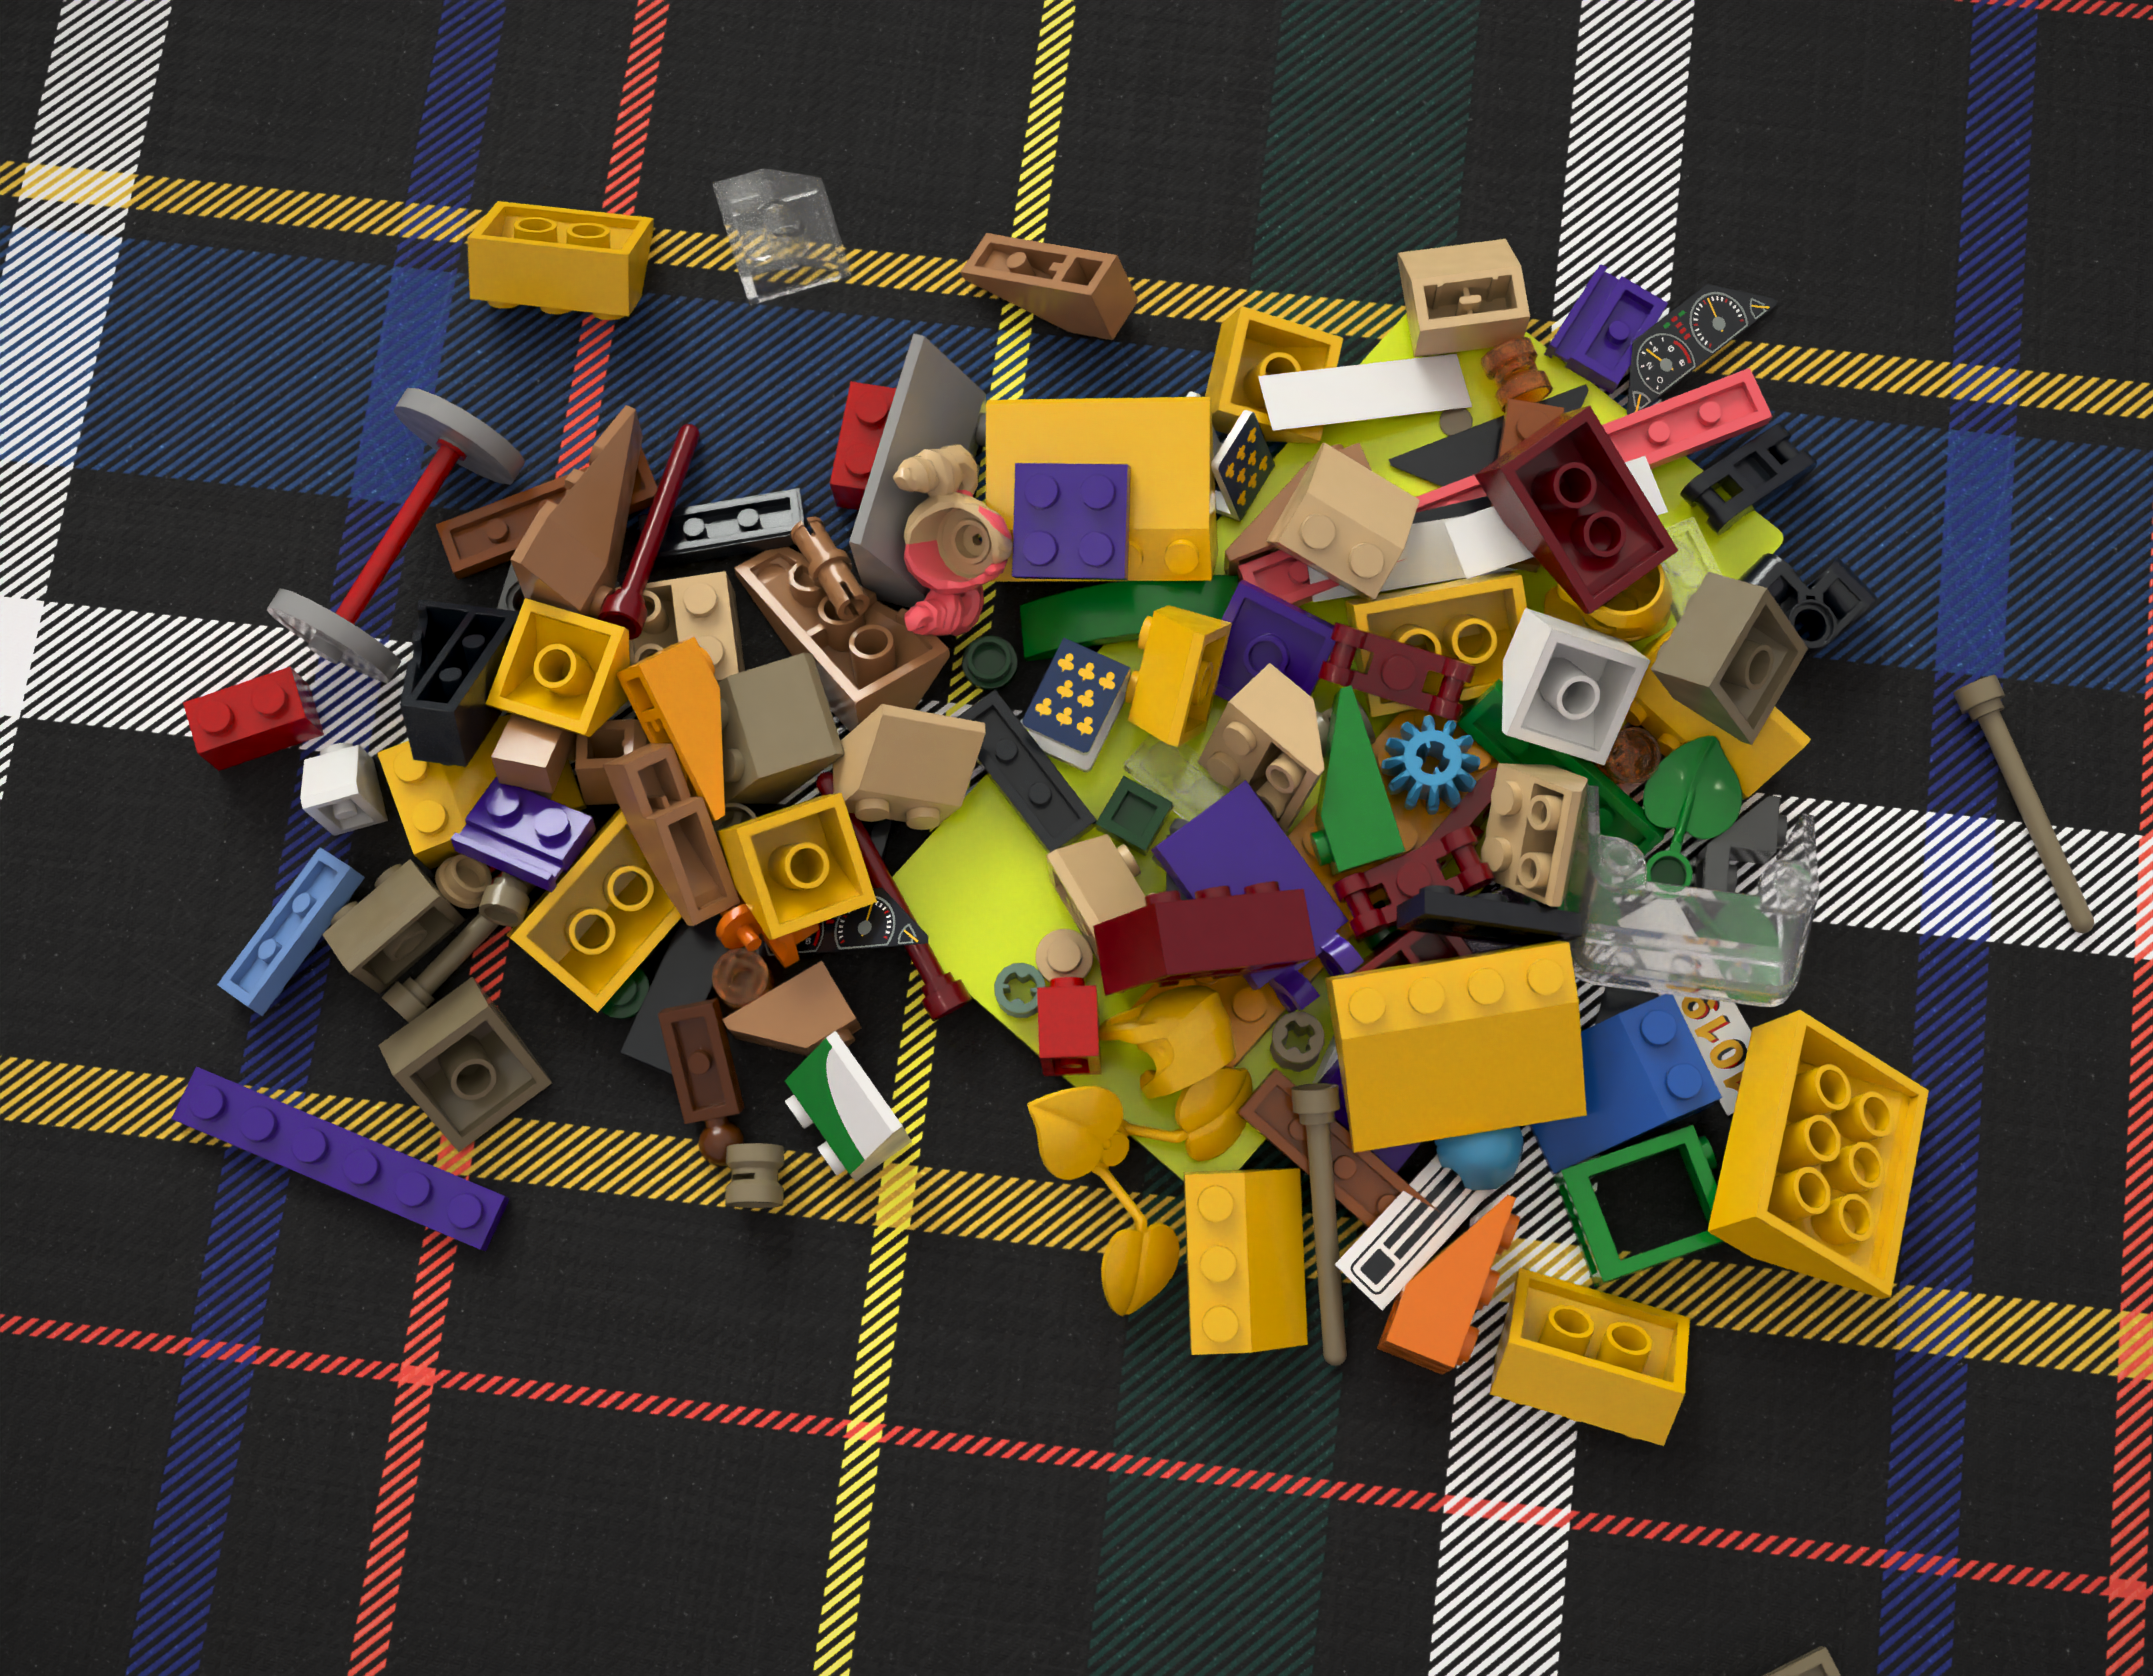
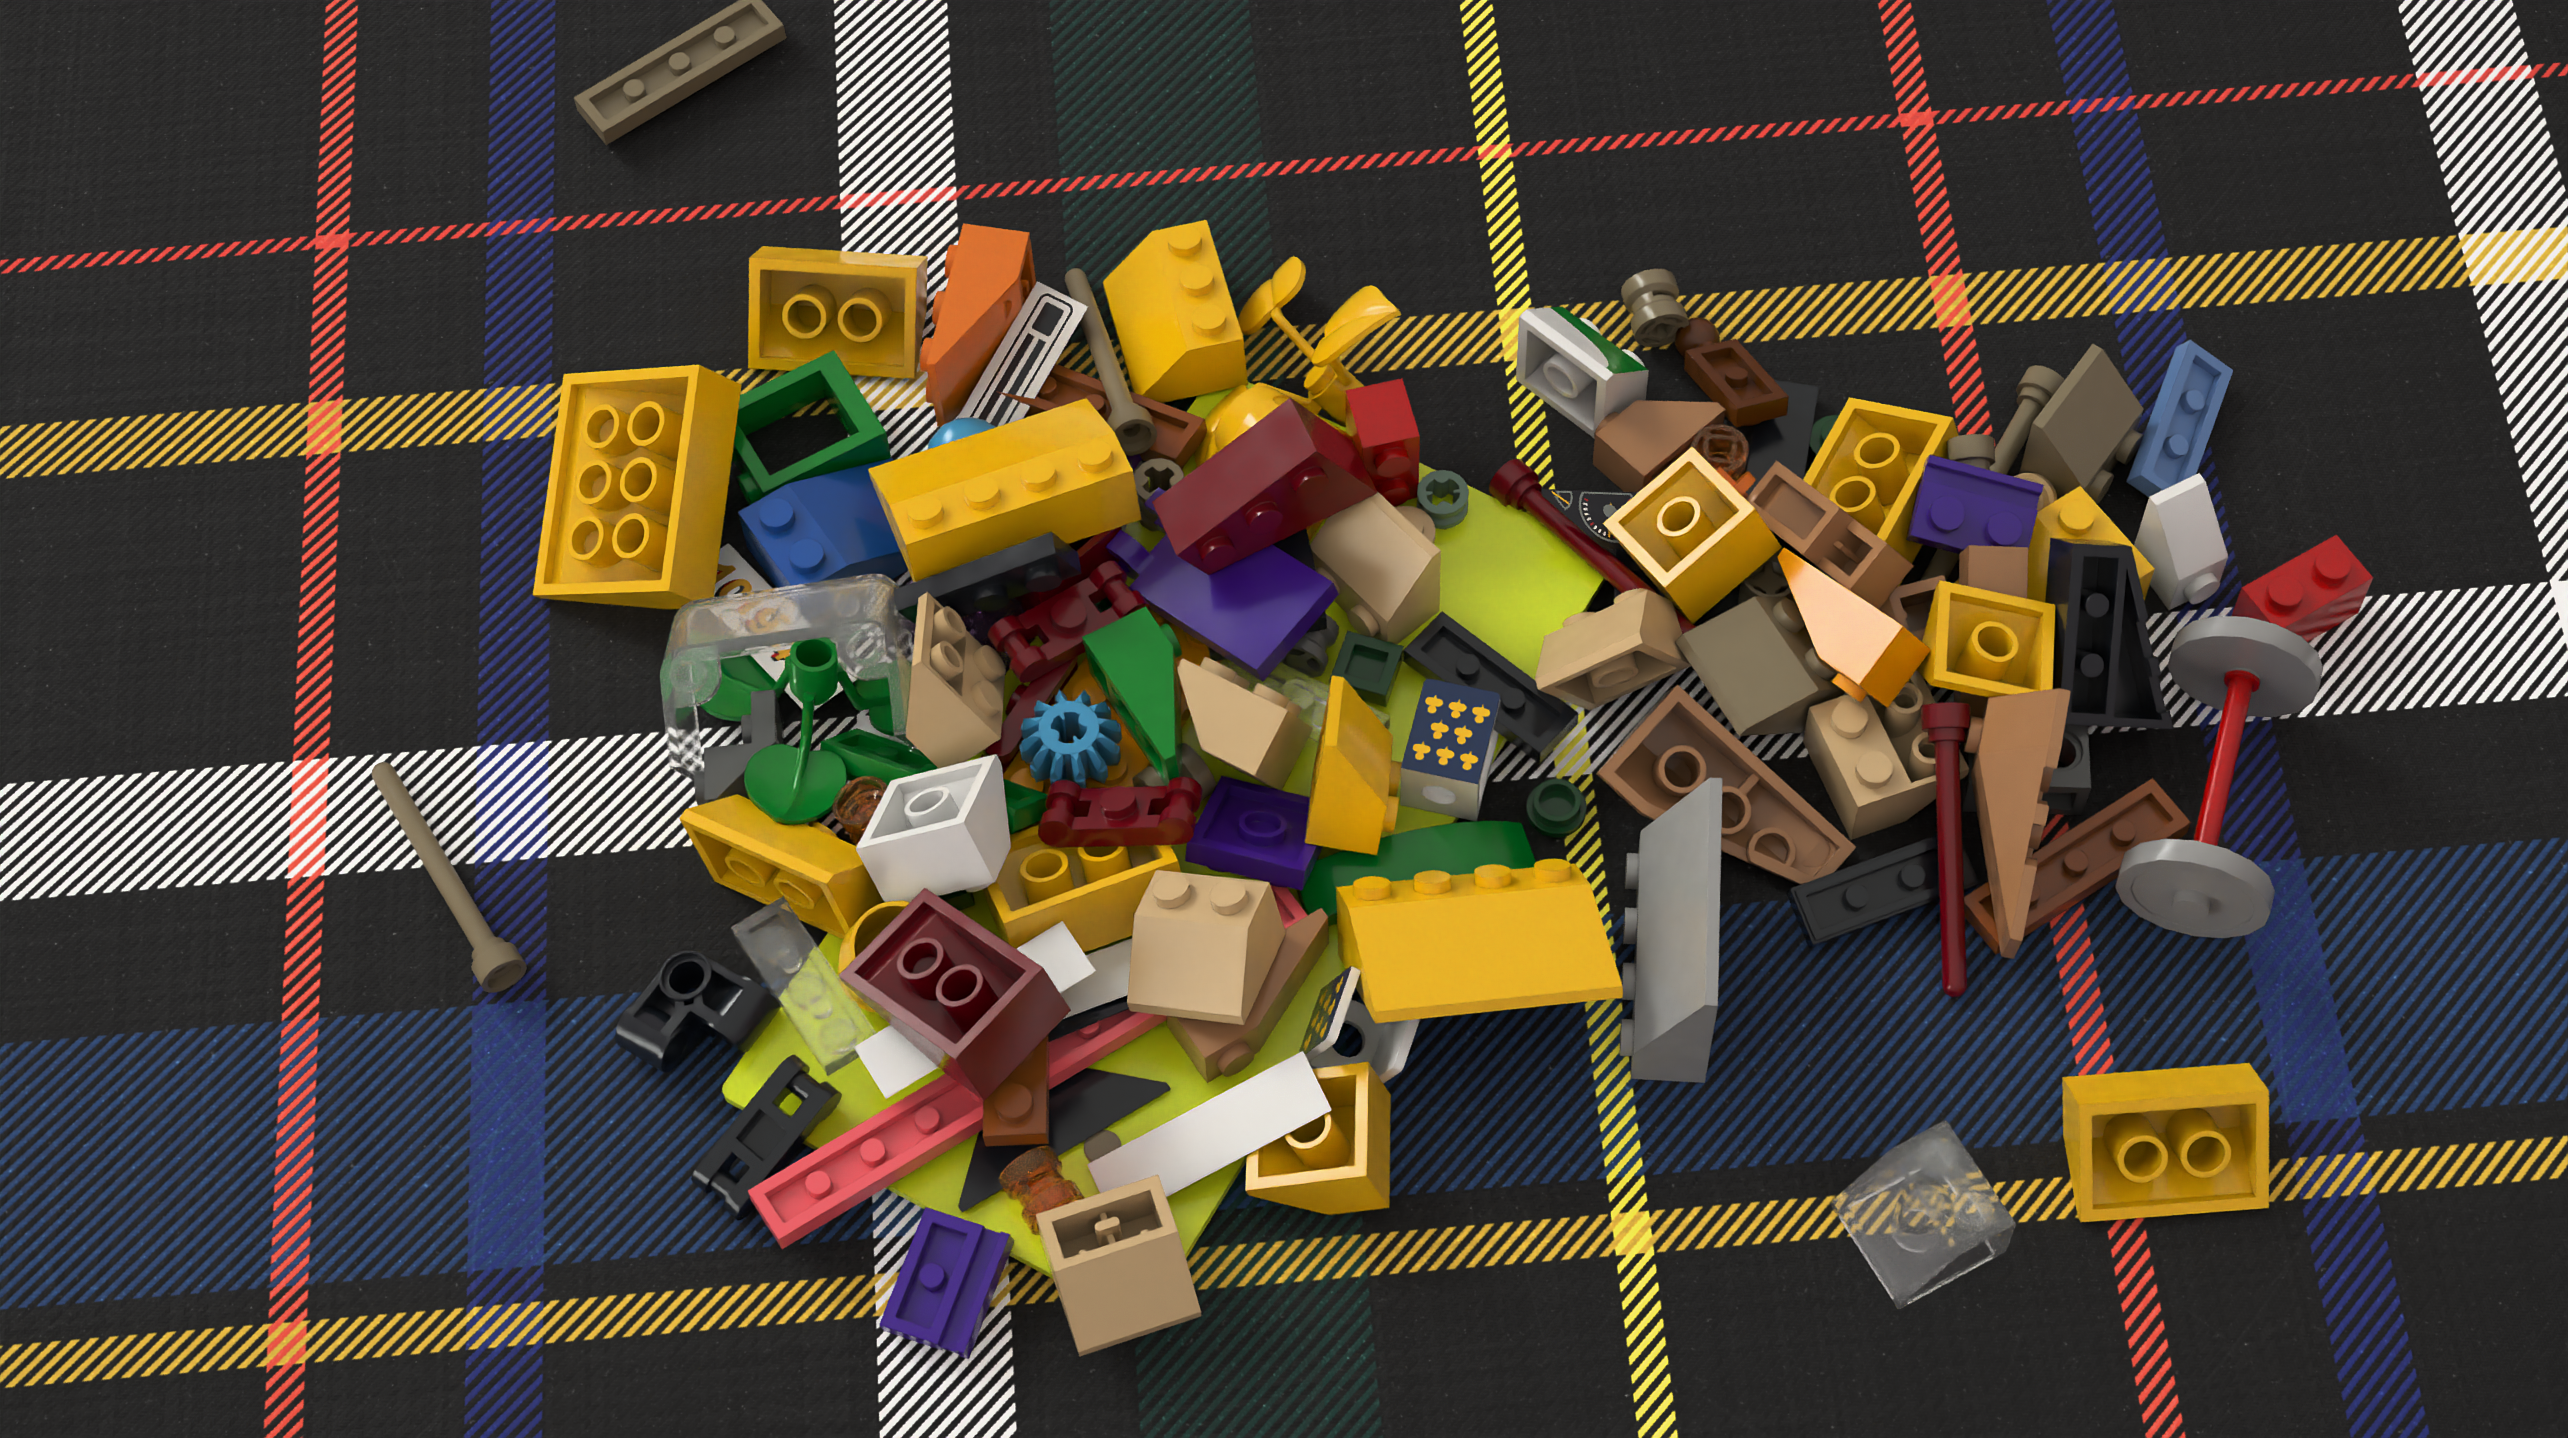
camera: 165 degrees right, 15 degrees down
(341, 1159) = (2056, 261): dark purple plate -> none
(464, 1064) = (1968, 347): dark tan slope -> none
(830, 568) = (1755, 847): medium nougat pin -> none
(858, 441) = (1749, 991): red brick -> none
(944, 541) = (1626, 852): tan hair -> none
(1061, 284) = (1596, 1214): medium nougat slope -> none
(1071, 521) = (1497, 887): dark purple plate -> none
(1688, 339) = (850, 1290): black sticker -> none
(1730, 655) = (776, 842): dark tan slope -> none

